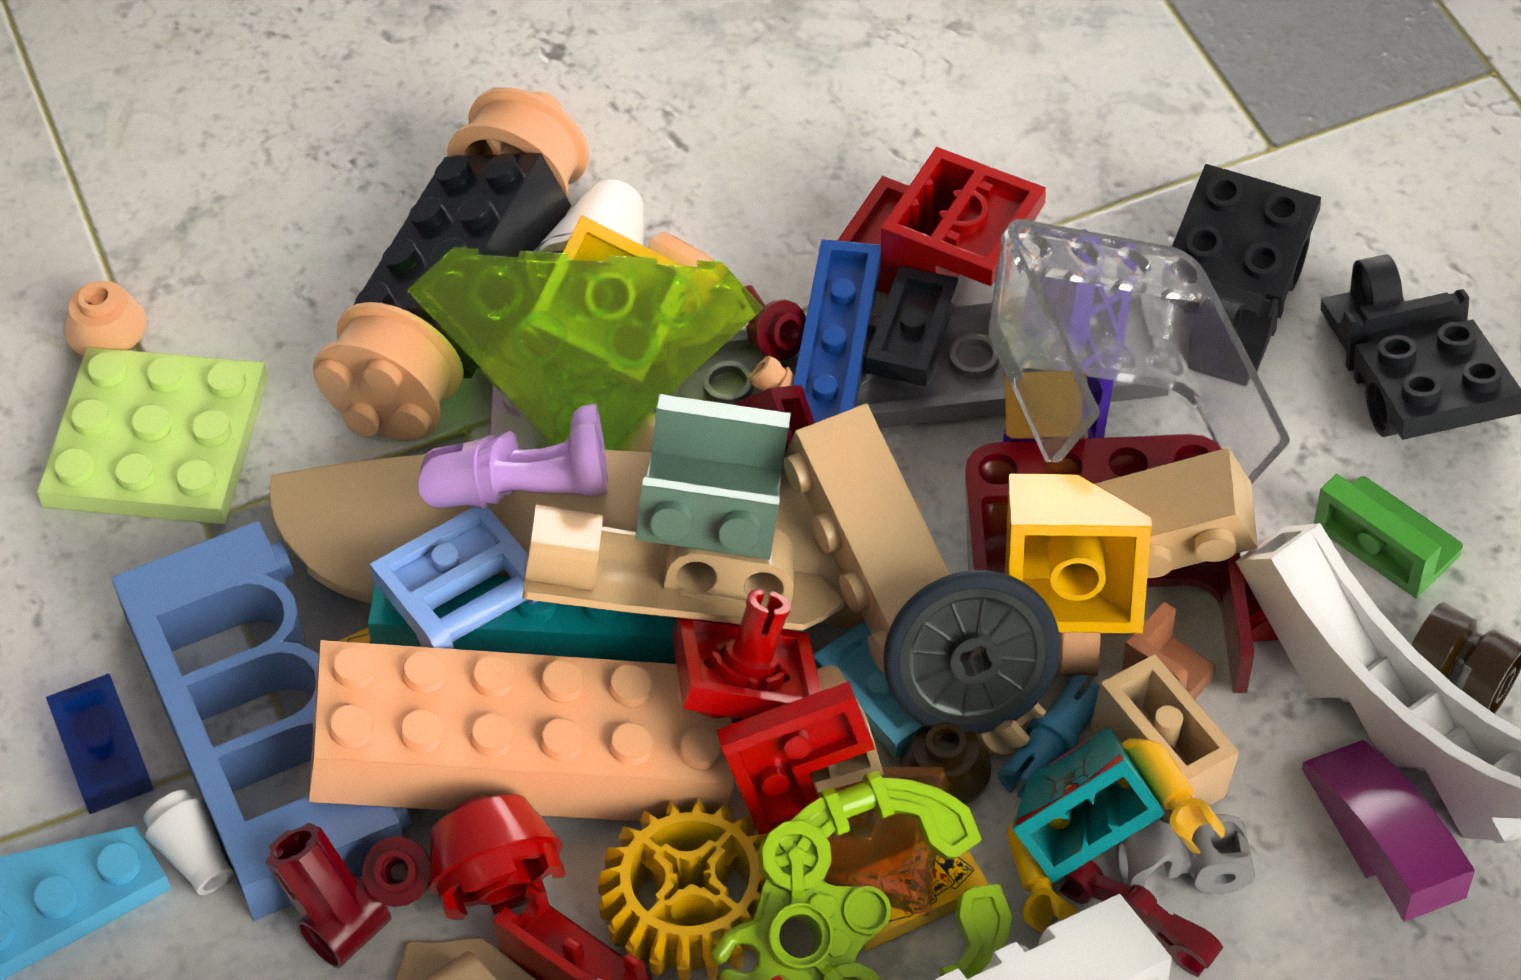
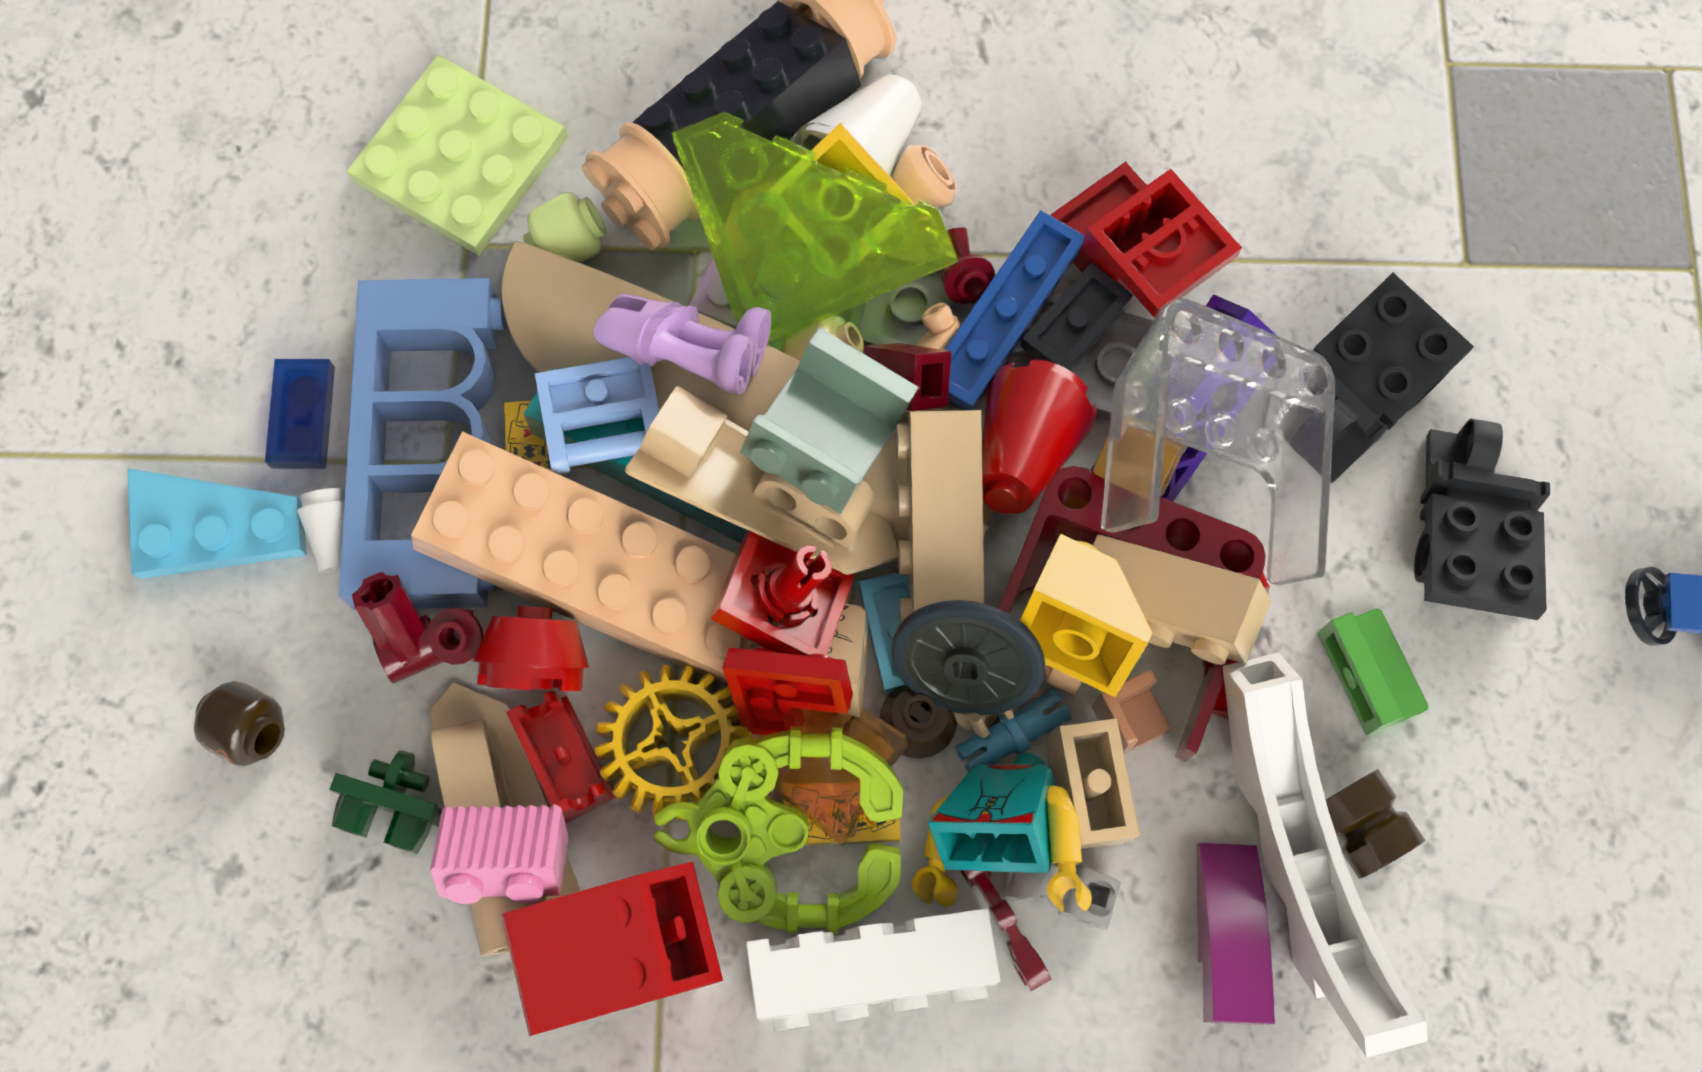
camera: 20 degrees right, 20 degrees up
(103, 317) = (462, 34): light nougat cone -> none
(316, 442) = (566, 227): none -> yellowish green head
(928, 423) = (1030, 431): none -> red cone

